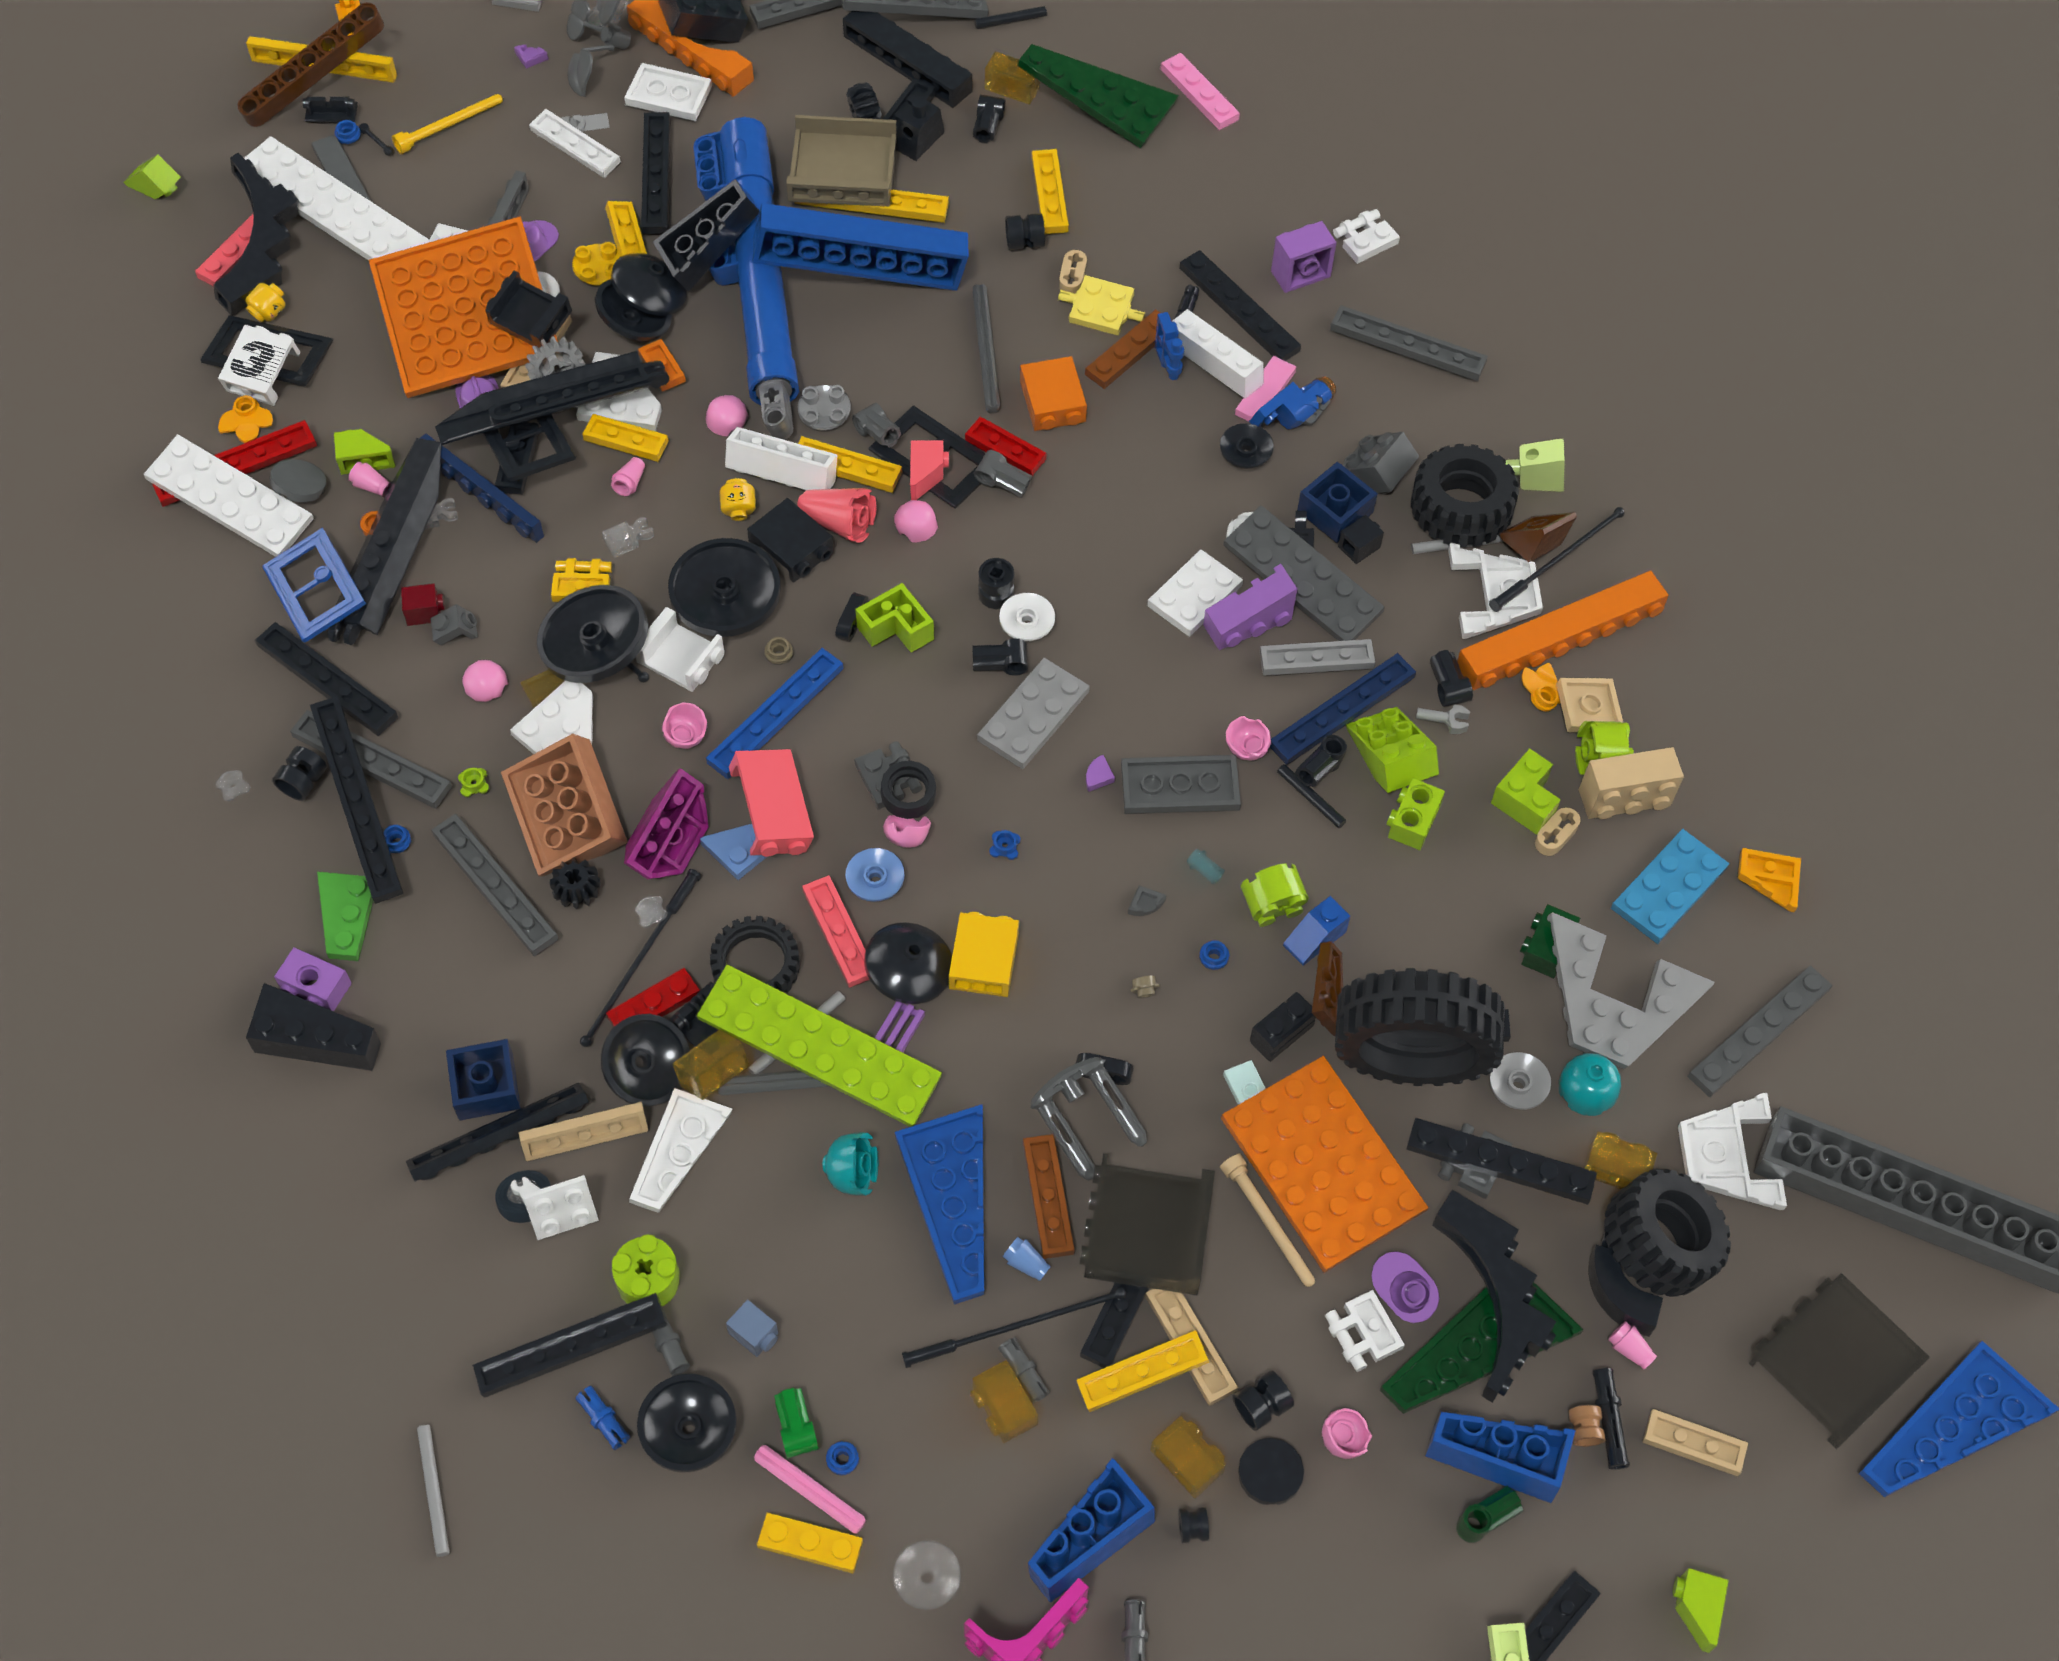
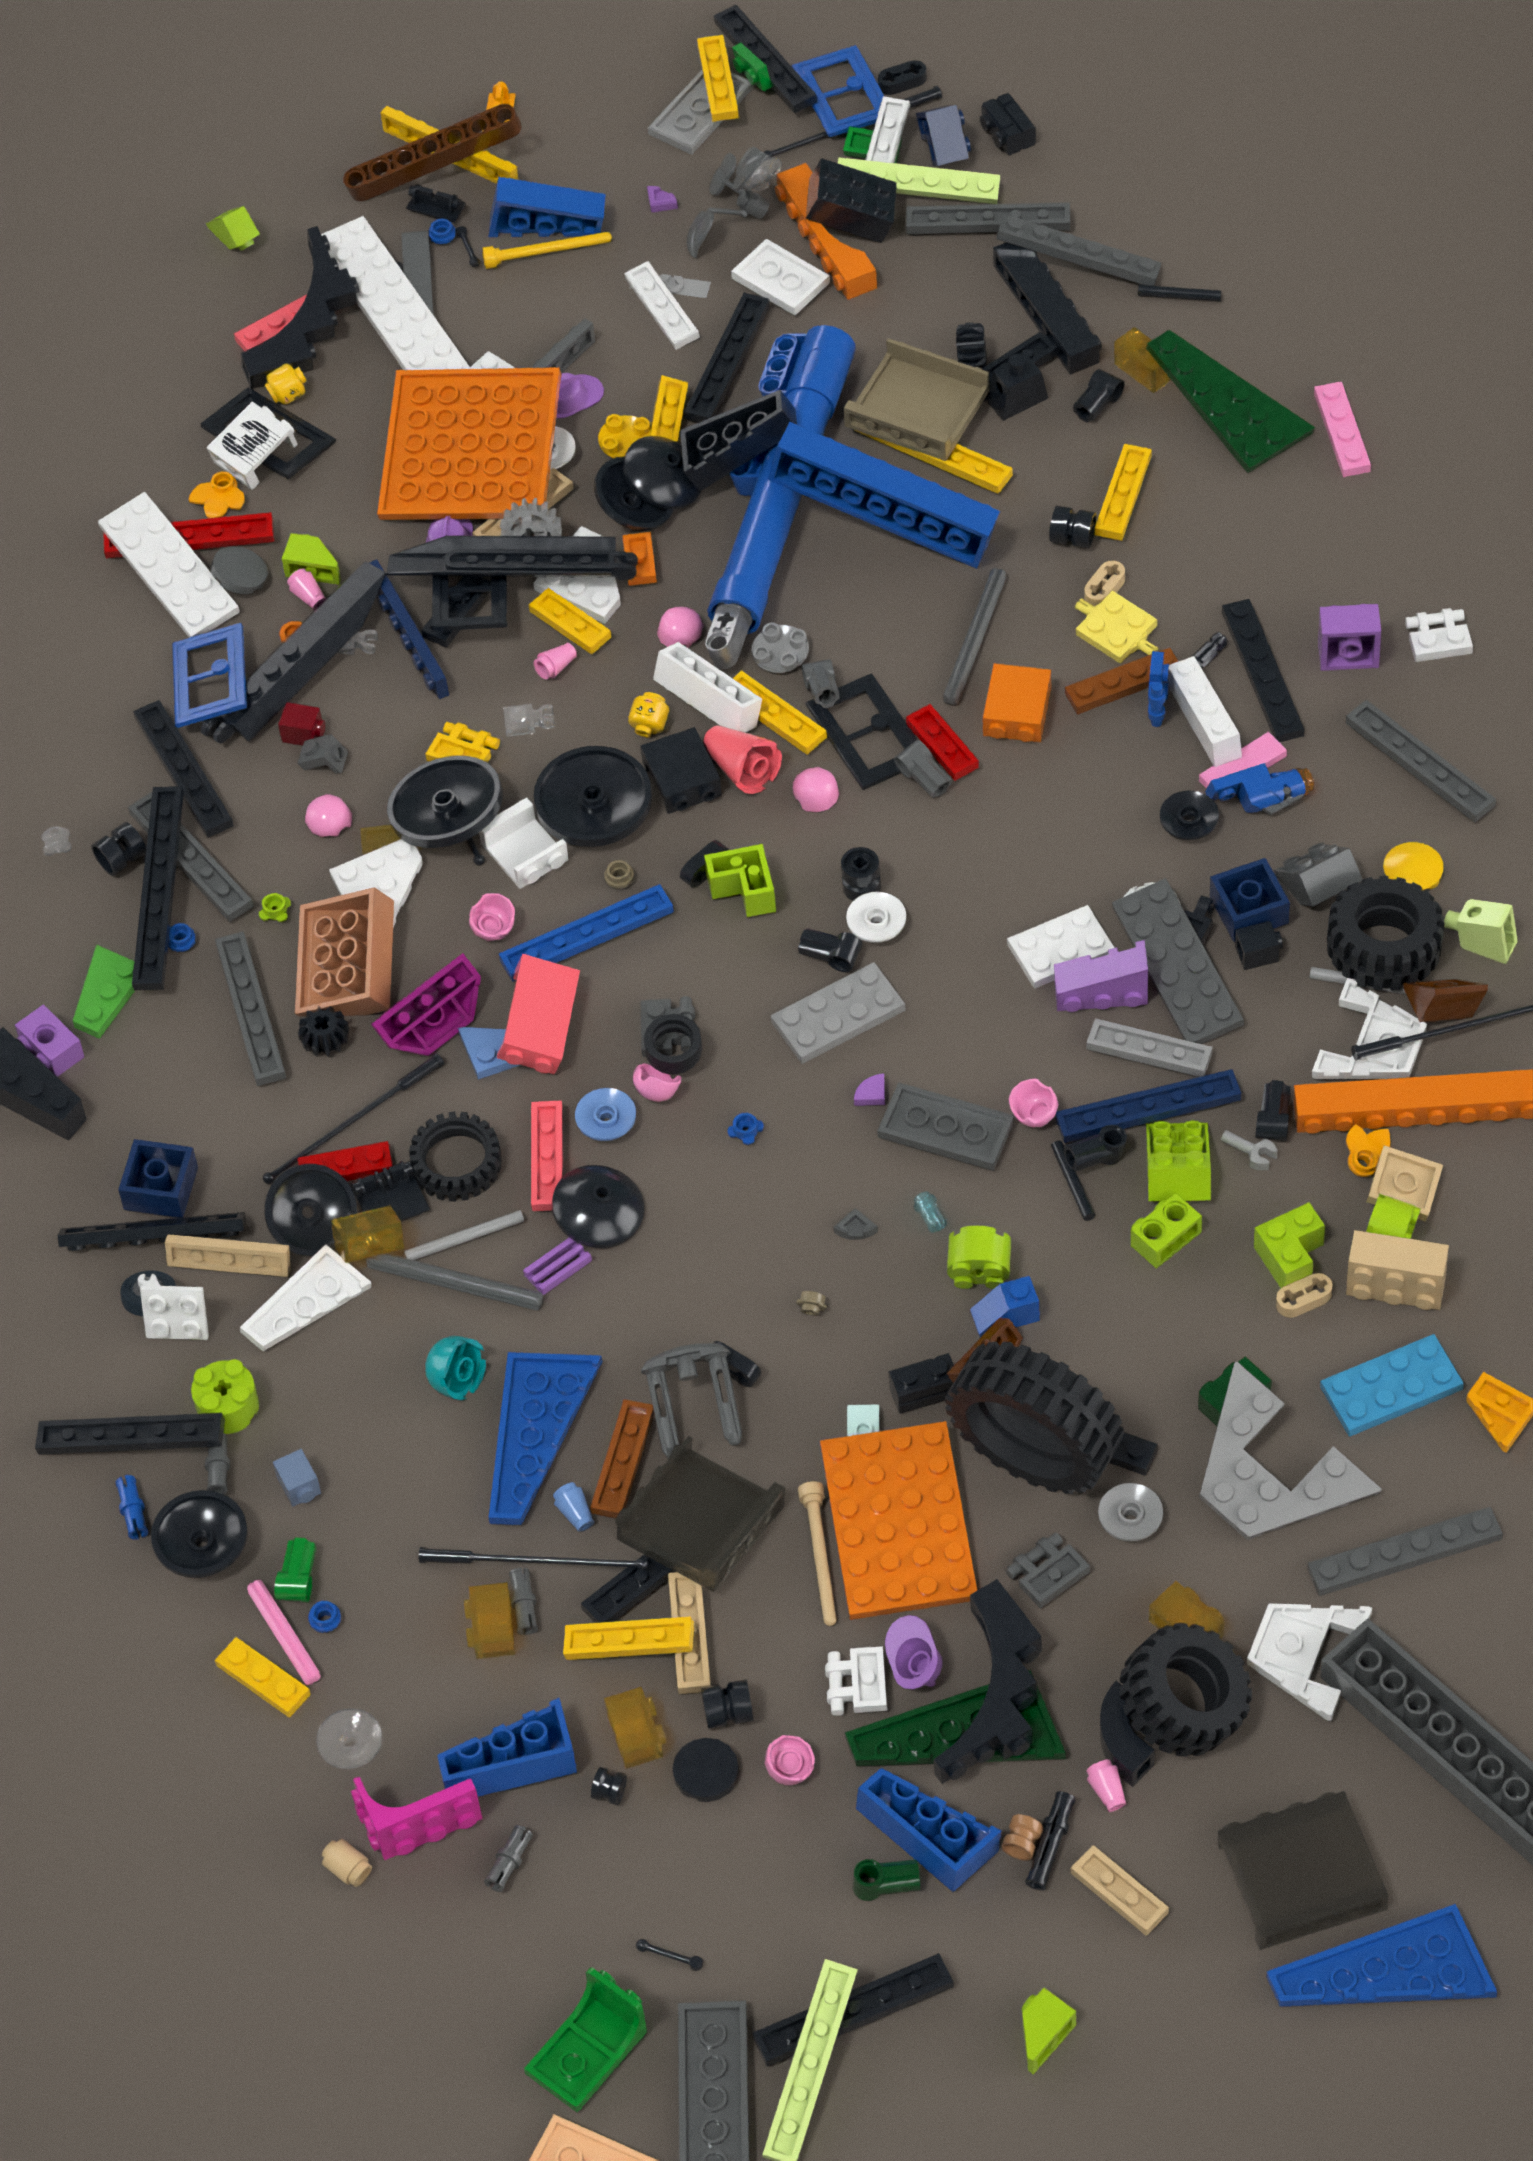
camera: 30 degrees right, 5 degrees down
(433, 88) = (544, 210): none -> blue wedge
(527, 311) = (524, 465): black panel -> none
(645, 908) = (381, 1079): clear plate -> none
(819, 1046) = (475, 1251): lime plate -> none
(926, 466) = (848, 738): coral slope -> none
(983, 954) = (672, 1221): yellow brick -> none
(1214, 947) = (895, 1289): blue plate -> none
(1448, 429) = (1414, 863): none -> yellow dish
(1502, 1161) = (1068, 1575): black plate -> none
(1590, 1084) = (1201, 1540): teal cylinder -> none

